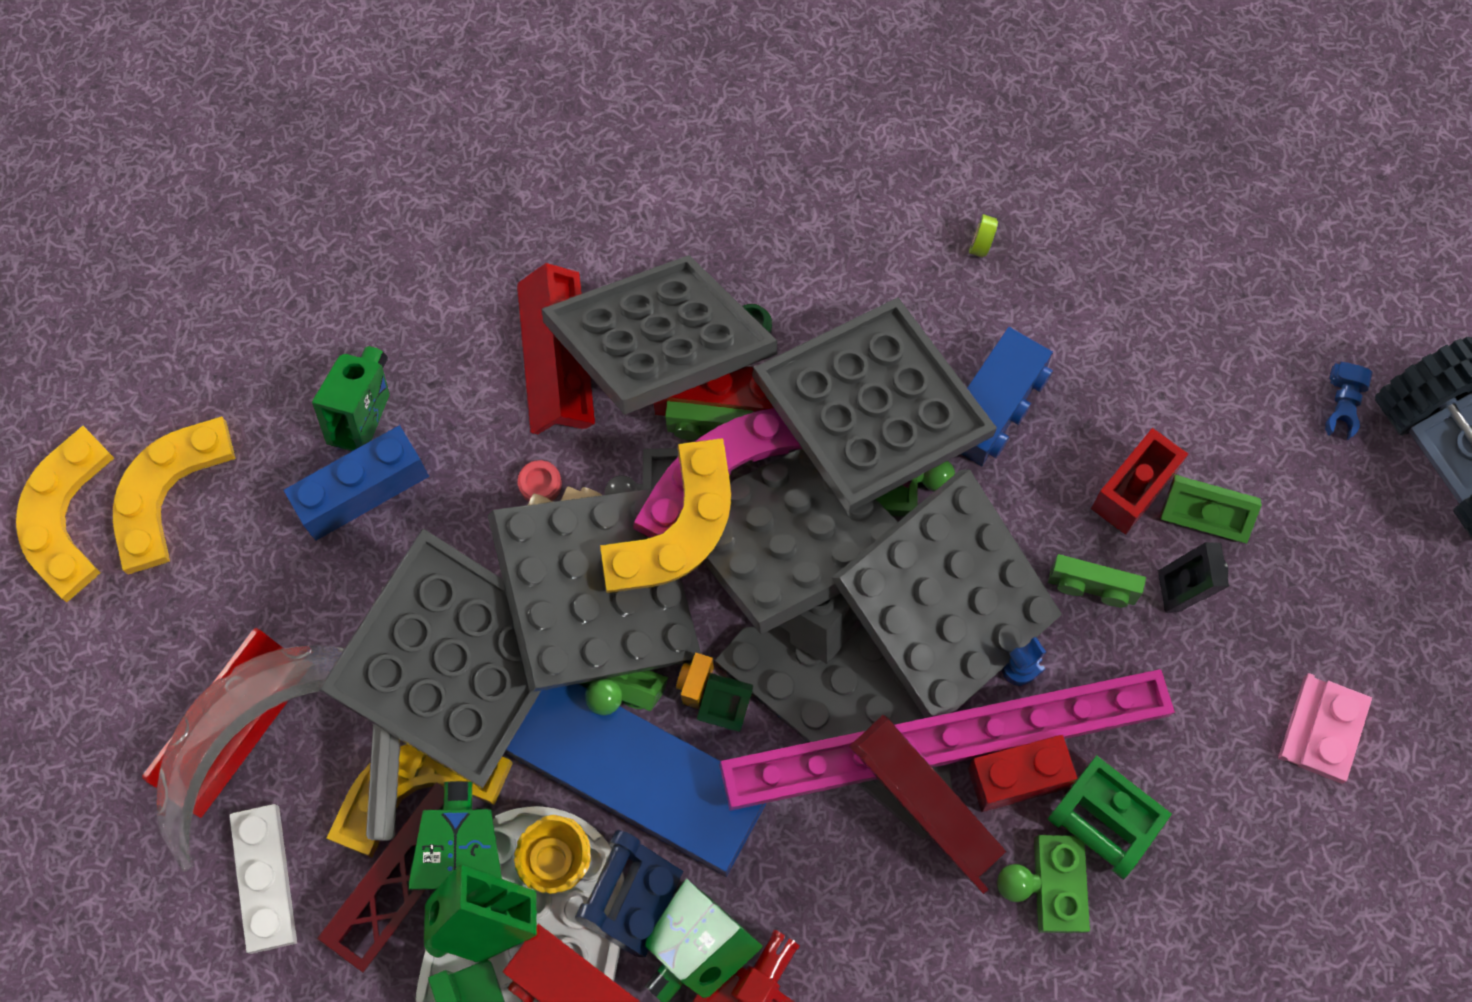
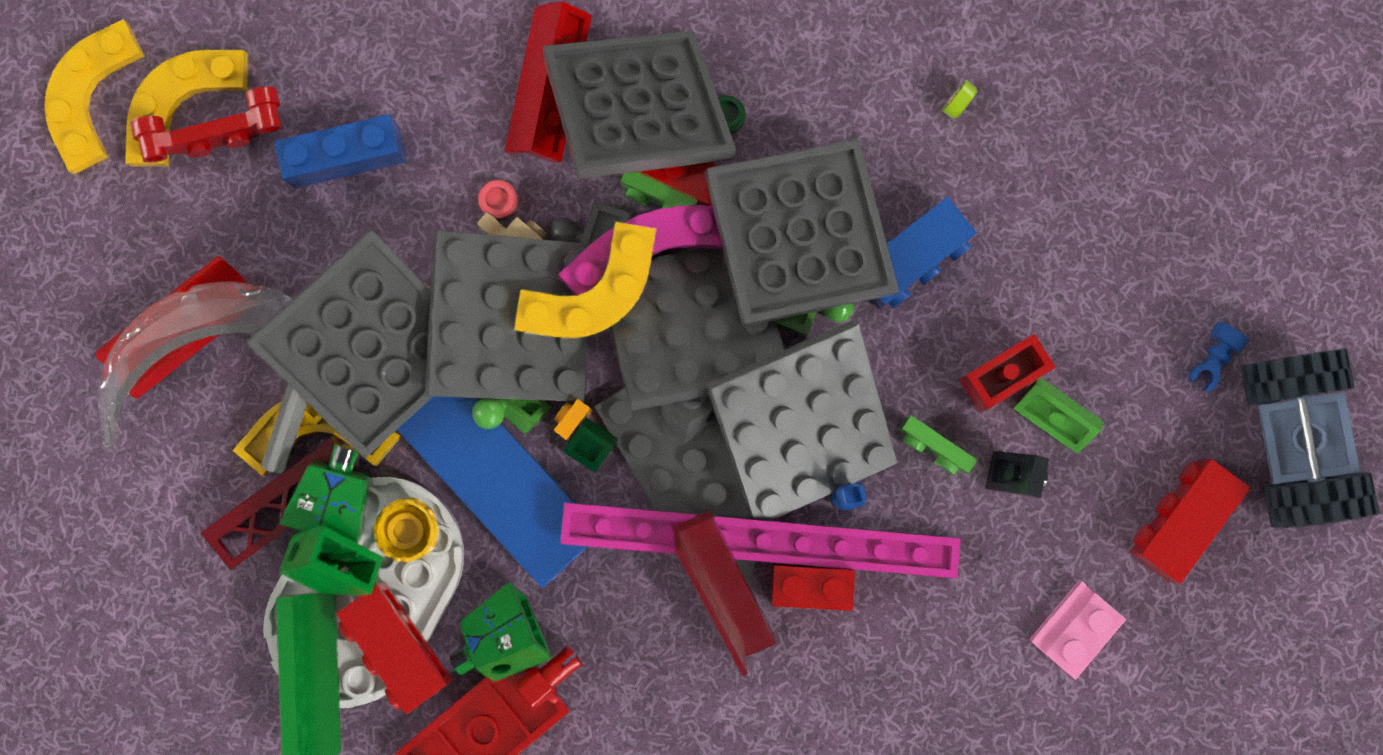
camera: 15 degrees right, 15 degrees up
(200, 517) = (201, 138): none -> red plate
(263, 879) = (174, 463): white plate -> none
(352, 399) = (358, 73): green torso -> none
(640, 900) = (467, 586): dark blue plate -> none
(1057, 881) = (808, 681): bright green plate -> none
(1119, 807) = (880, 637): green plate -> none
(1391, 571) = (1188, 519): none -> red brick

